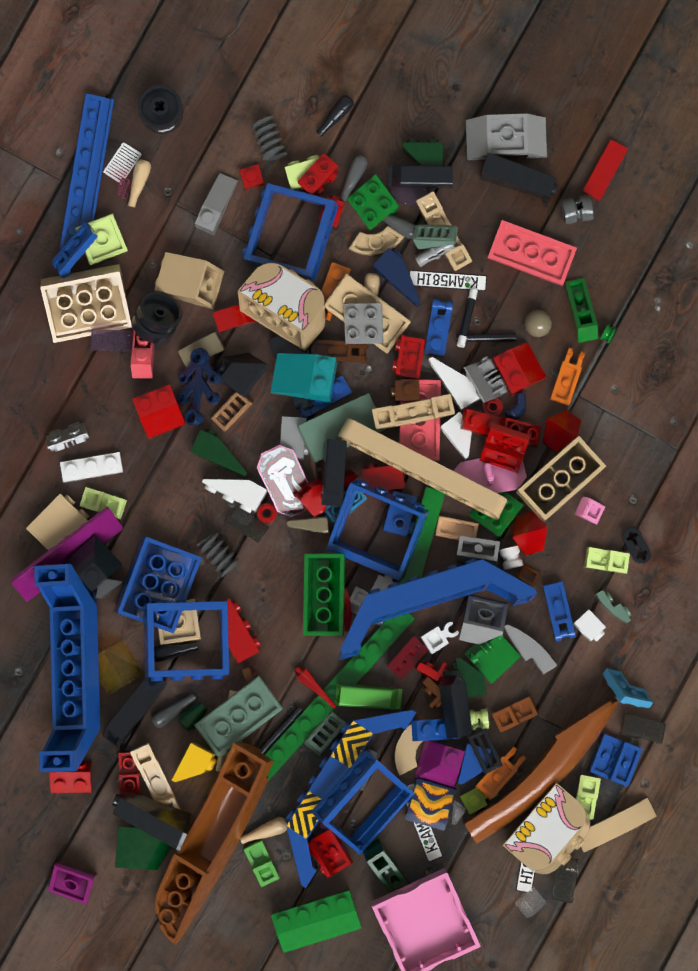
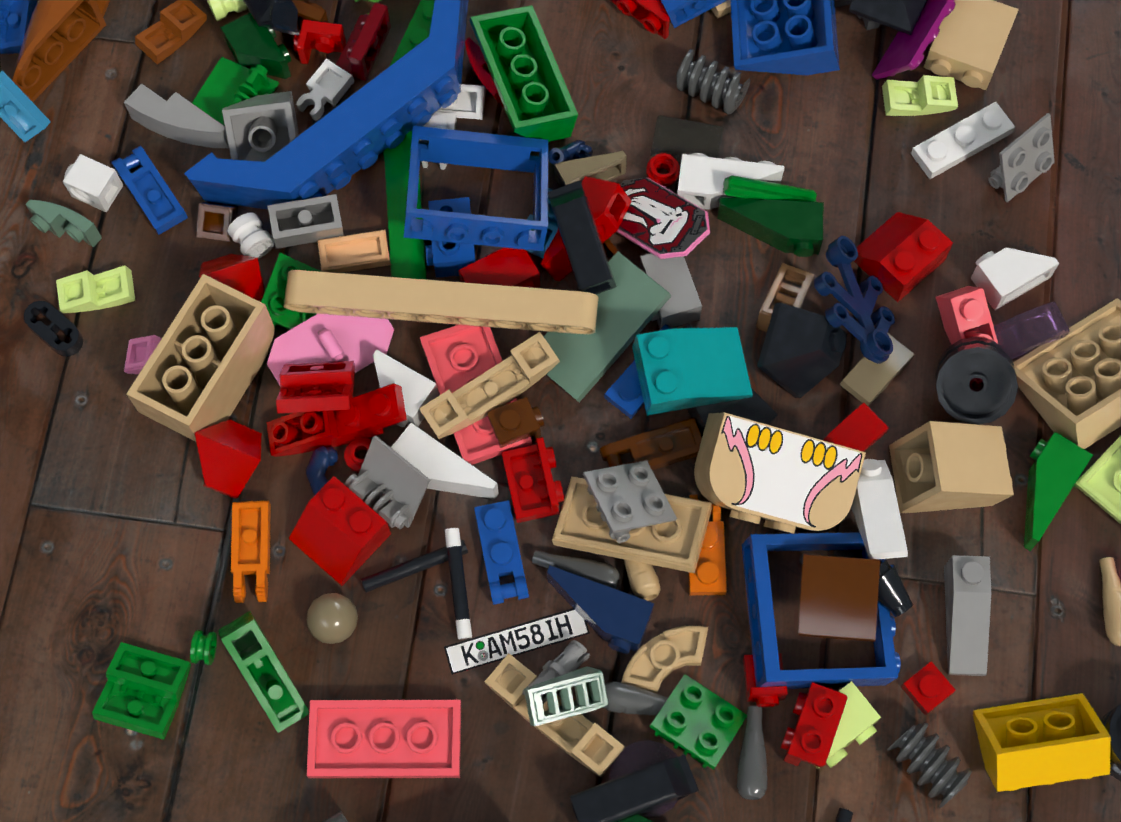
camera: 155 degrees right, 15 degrees down
(107, 375) = (1011, 274): none -> white slope
(139, 255) = (1050, 480): none -> green slope
(209, 129) = (1042, 742): none -> yellow slope
(216, 470) = (758, 189): none -> green axle
(240, 265) = (878, 512): none -> white slope
(254, 228) = (892, 591): none -> black cone
(281, 226) = (839, 597): none -> reddish brown slope
(316, 543) = (571, 151): none -> dark blue arm
(401, 301) = (589, 569): none -> dark grey piece
(646, 324) = (142, 690): none -> green slope

